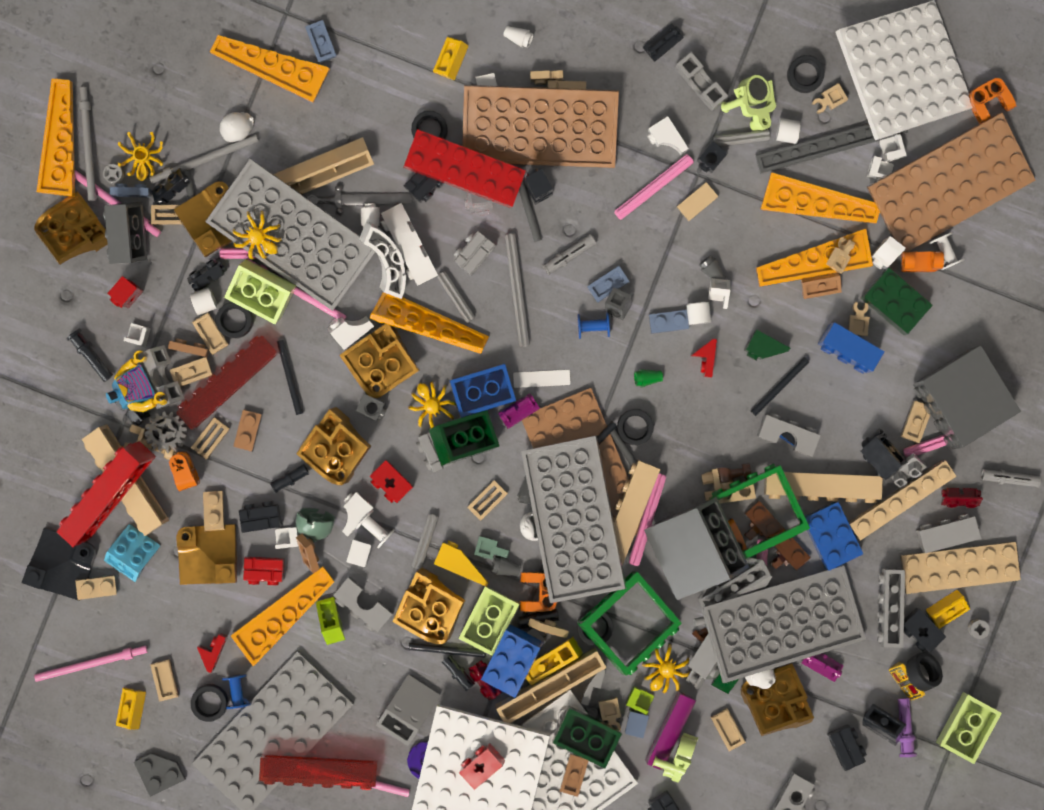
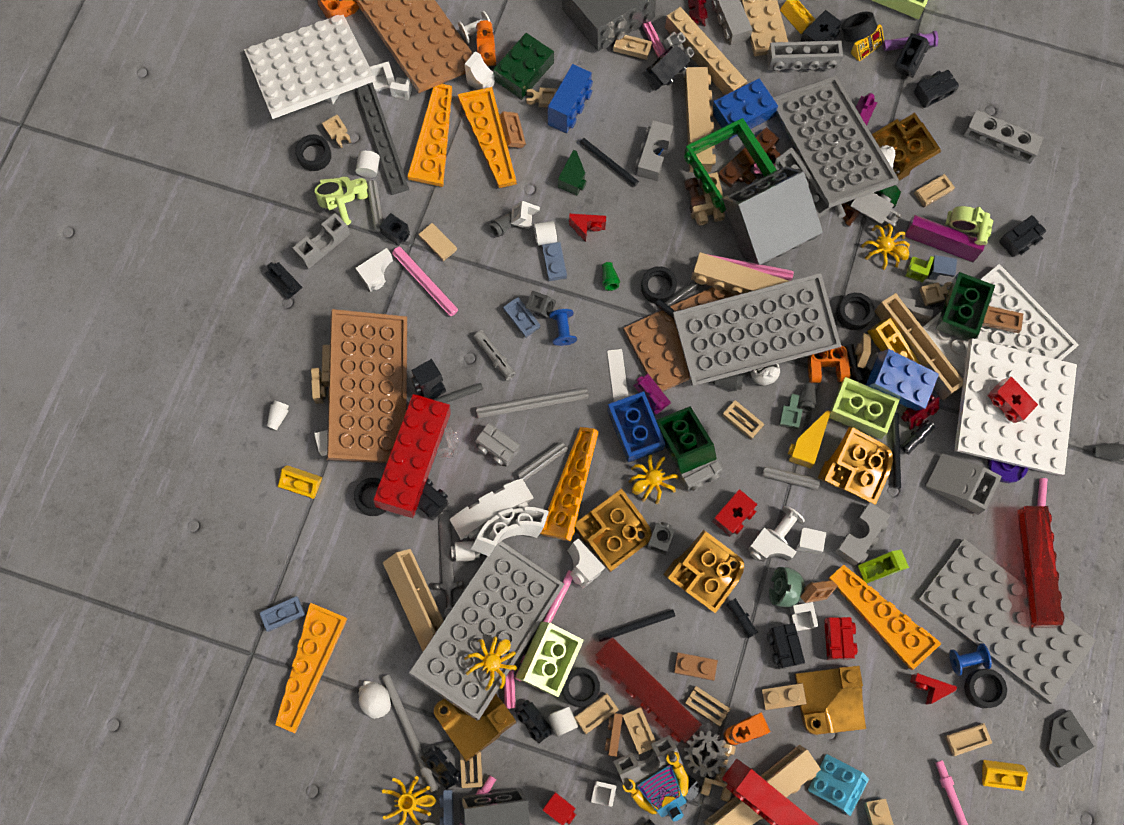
camera: 90 degrees left, 15 degrees down
(610, 599) = (836, 298): green window -> none
(840, 257) = (486, 111): tan plate -> none

